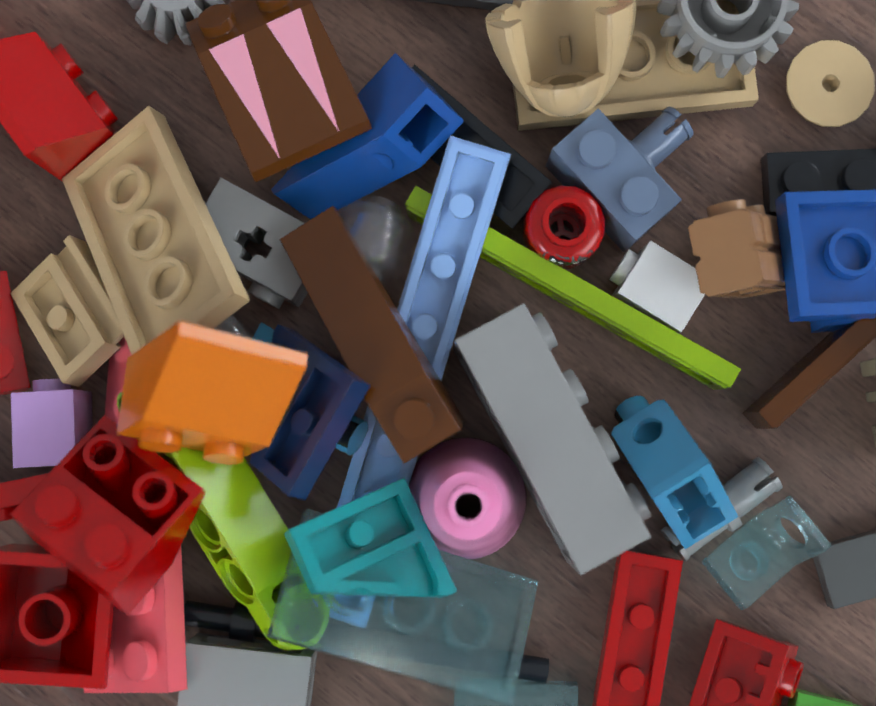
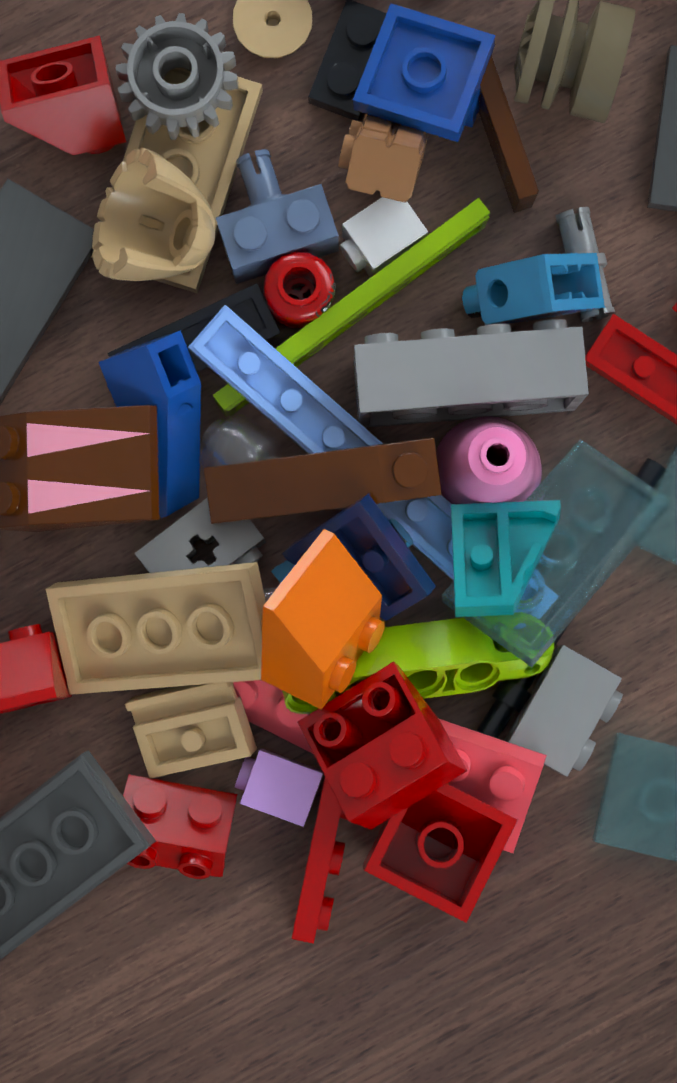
camera: 70 degrees left, 0 degrees up
(763, 552) = (634, 246): clear light blue bracket -> none

